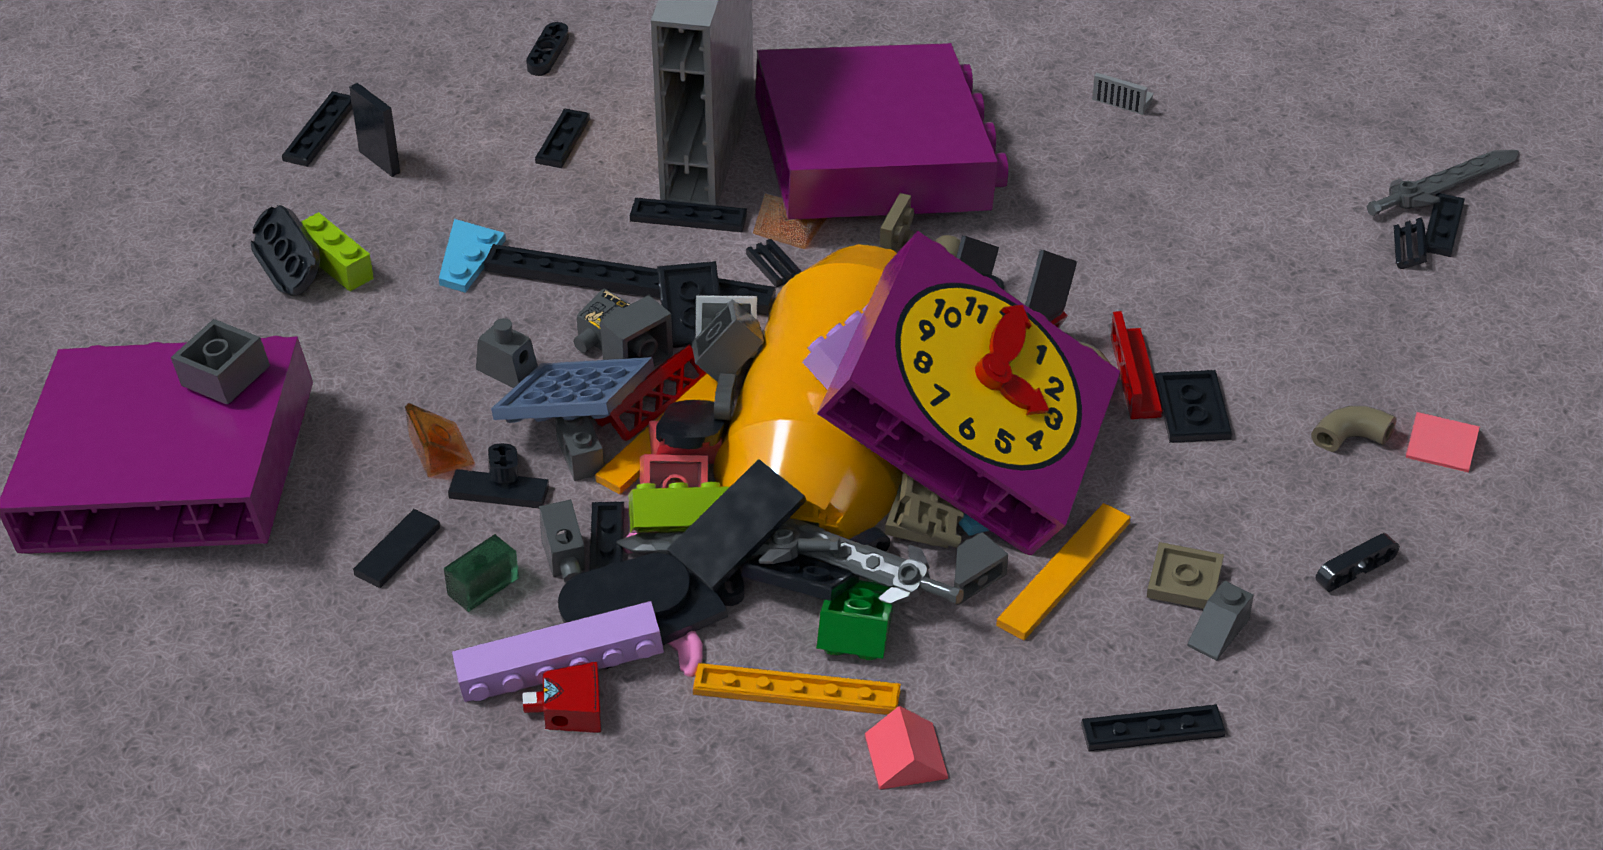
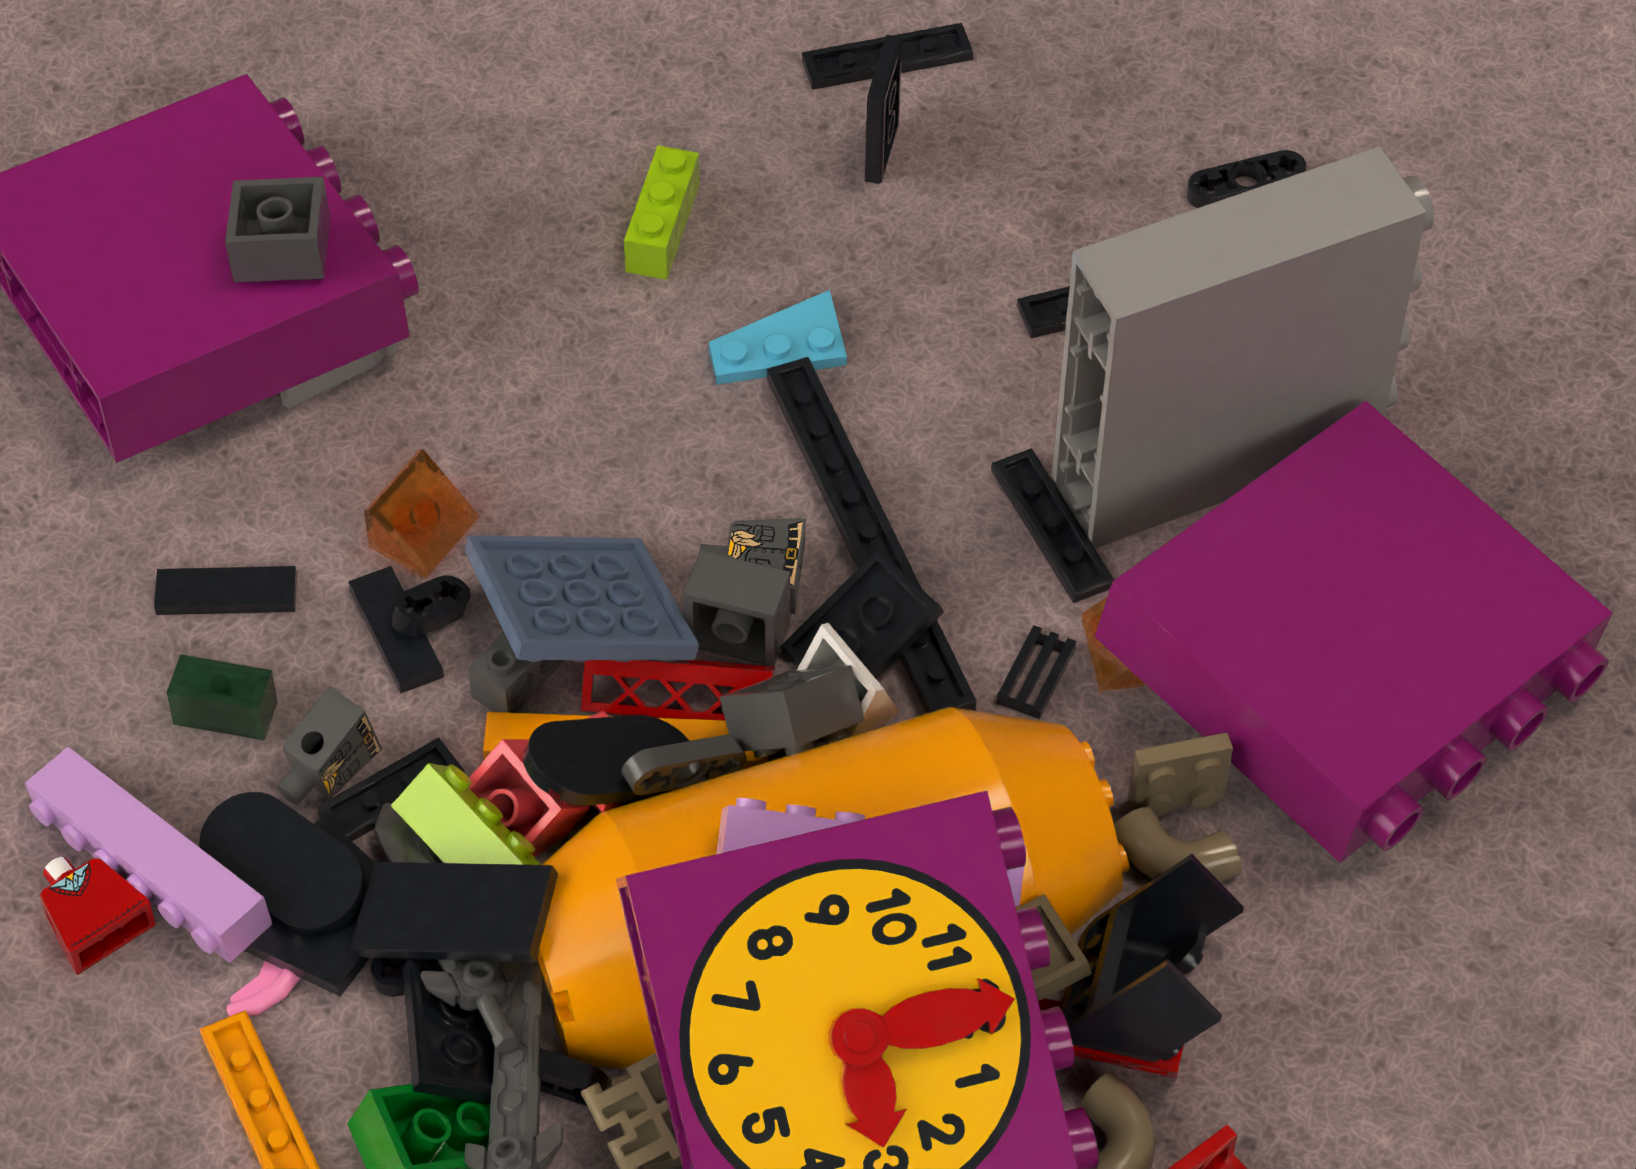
camera: 55 degrees right, 10 degrees up
(285, 250) = (619, 165): black tile -> none
(505, 353) = (611, 483): dark grey torso -> none

